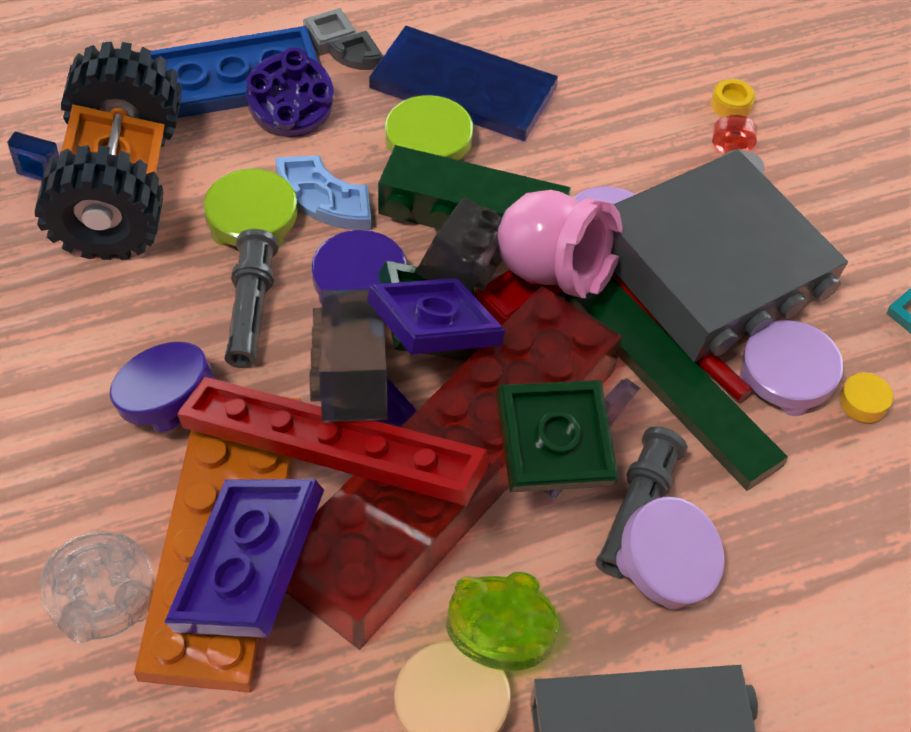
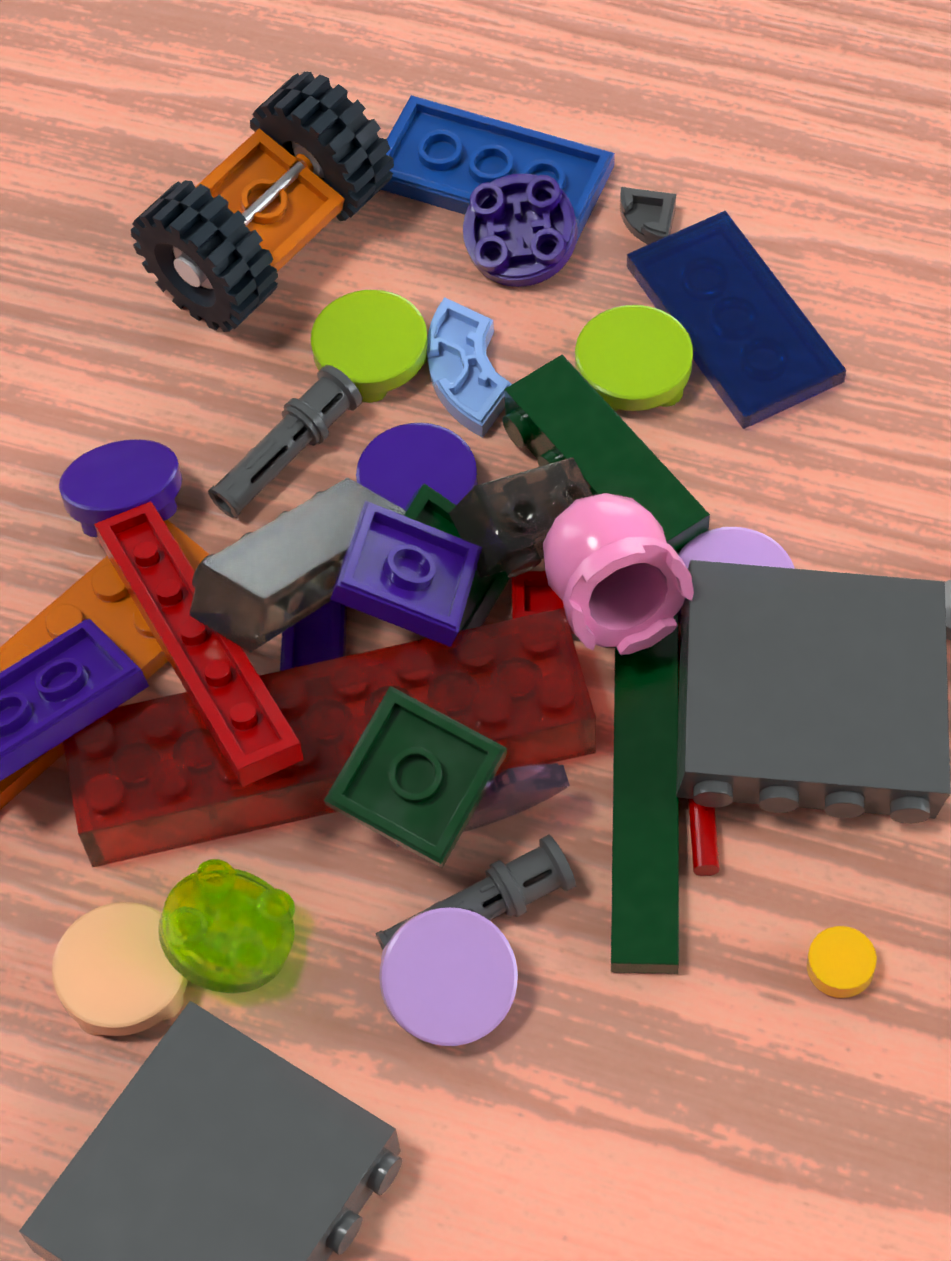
camera: 45 degrees right, 5 degrees up
(31, 154) = (198, 155): clear blue tile -> none
(327, 28) = (639, 169): light grey tile -> none
(792, 366) = (785, 871): lavender tile -> none

